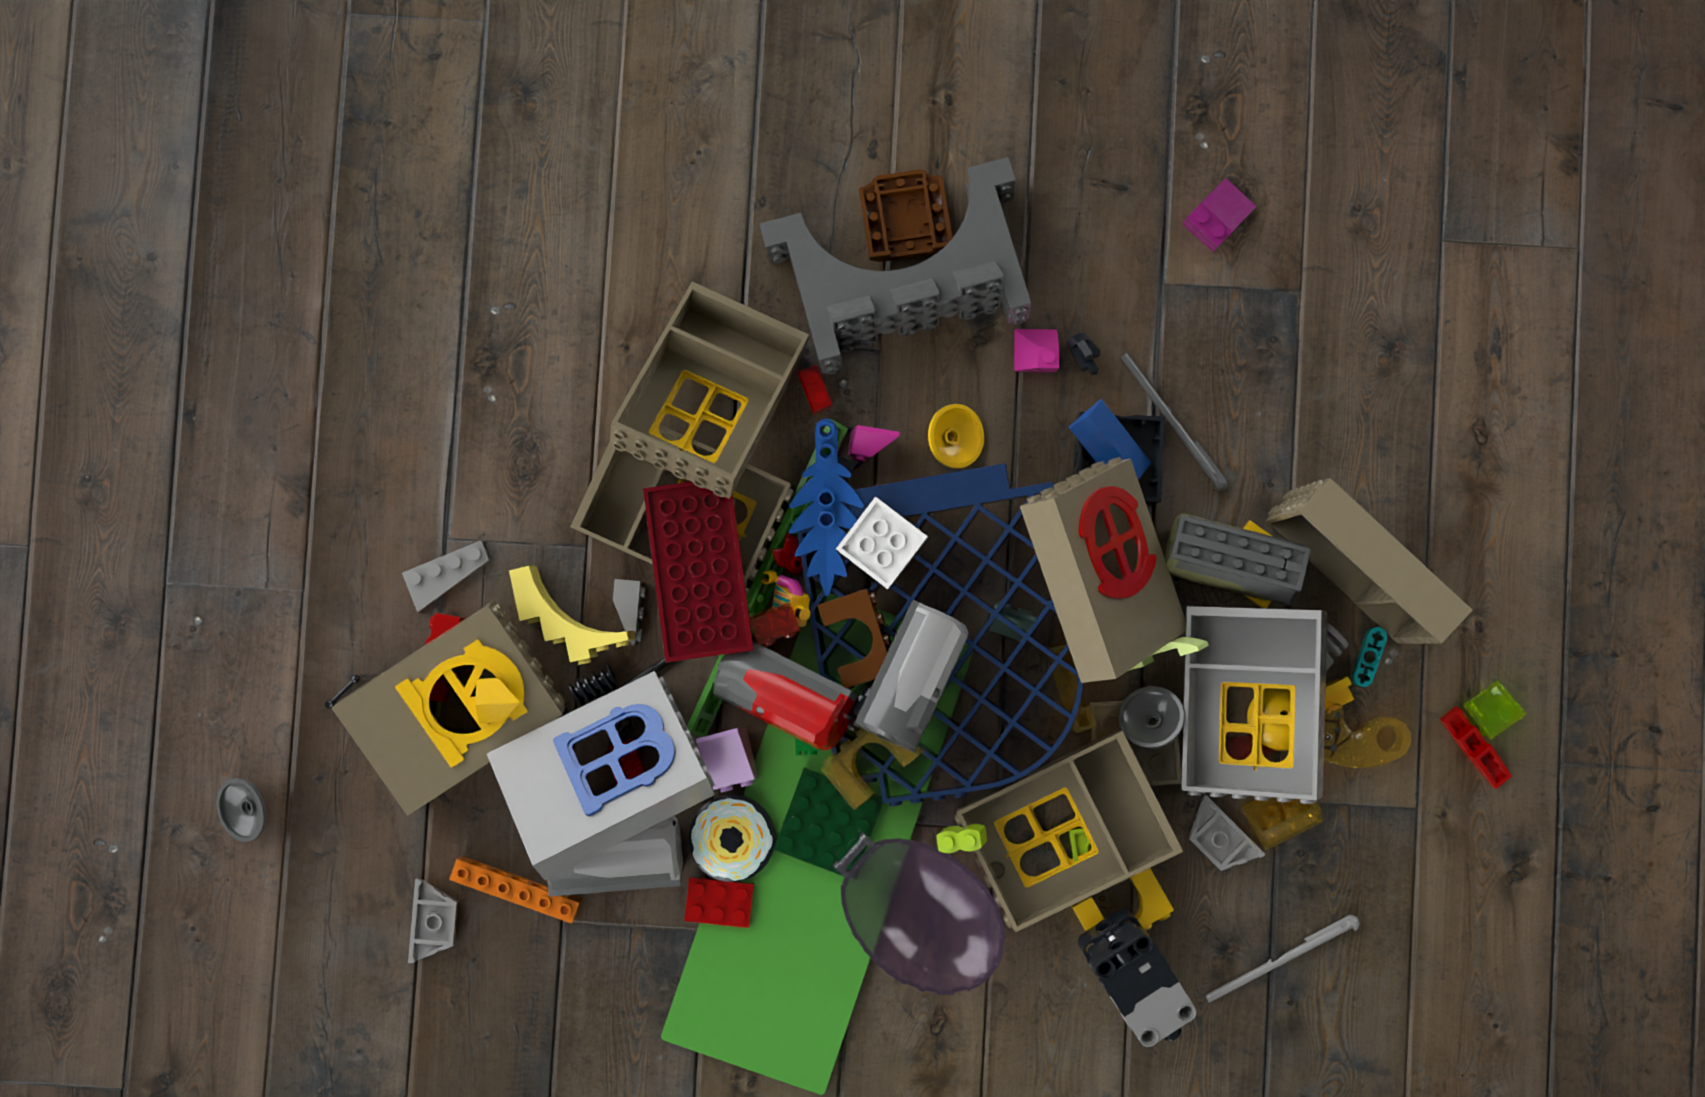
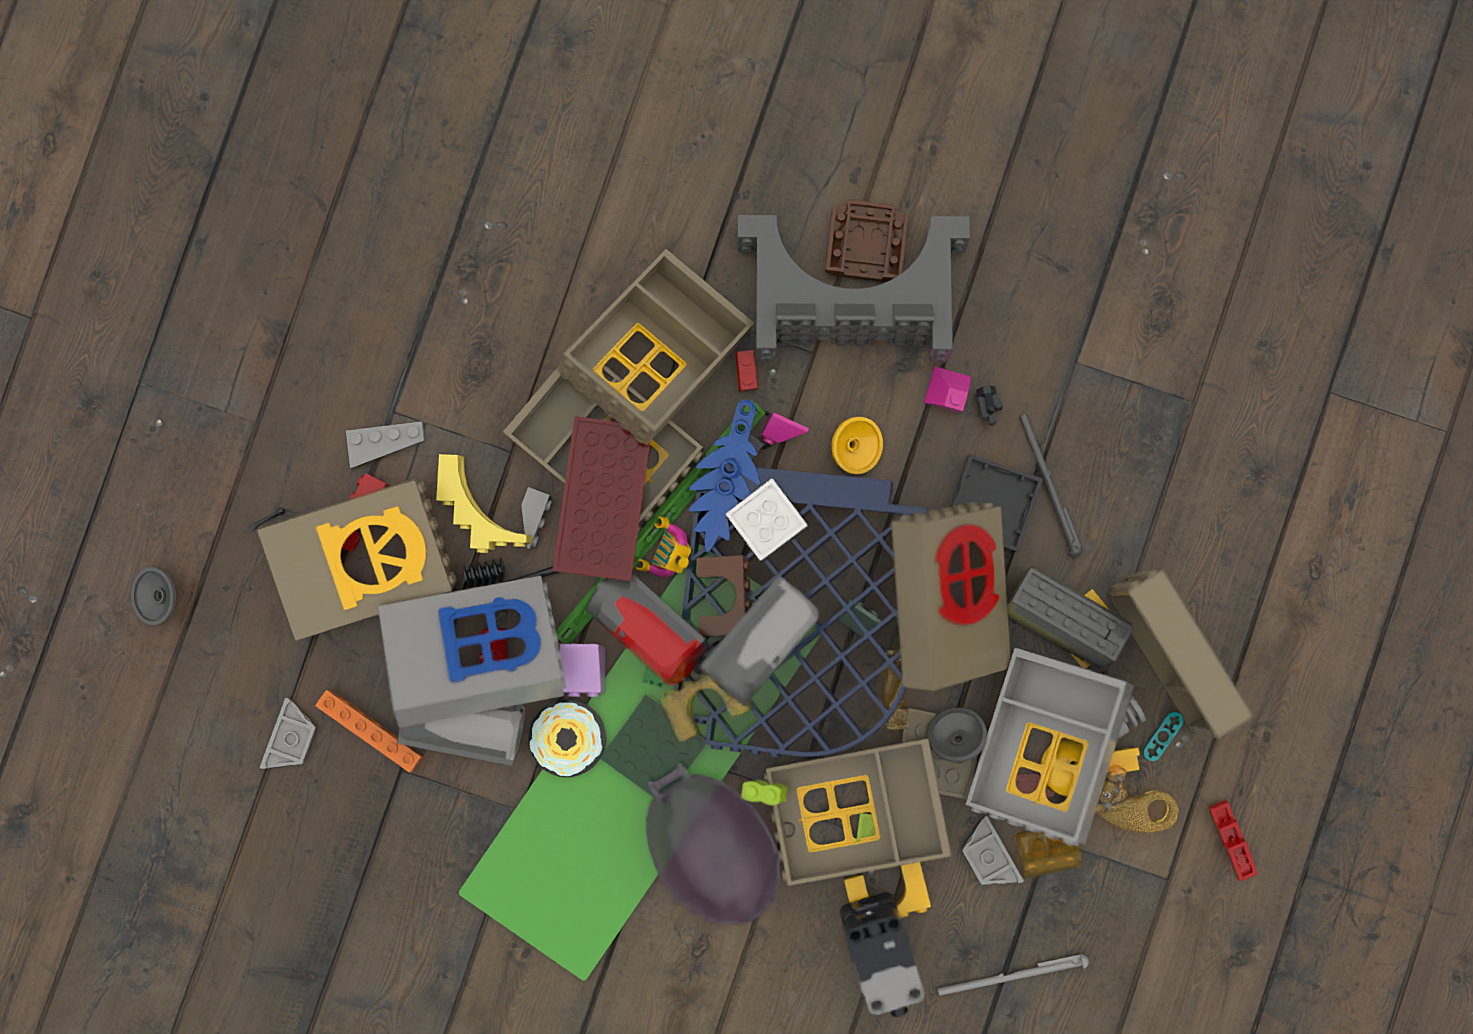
camera: 15 degrees right, 0 degrees up
(493, 700) = (397, 562): yellow slope -> none
(719, 902) = (540, 790): red plate -> none
(774, 624) = (655, 564): clear red brick -> none
(786, 556) = (681, 508): red plate -> none
(1107, 438) = (987, 484): blue slope -> none
(1184, 645) = (1001, 679): yellowish green slope -> none
(1219, 215) = (1140, 315): magenta slope -> none
(1494, 710) = (1257, 812): clear neon green slope -> none

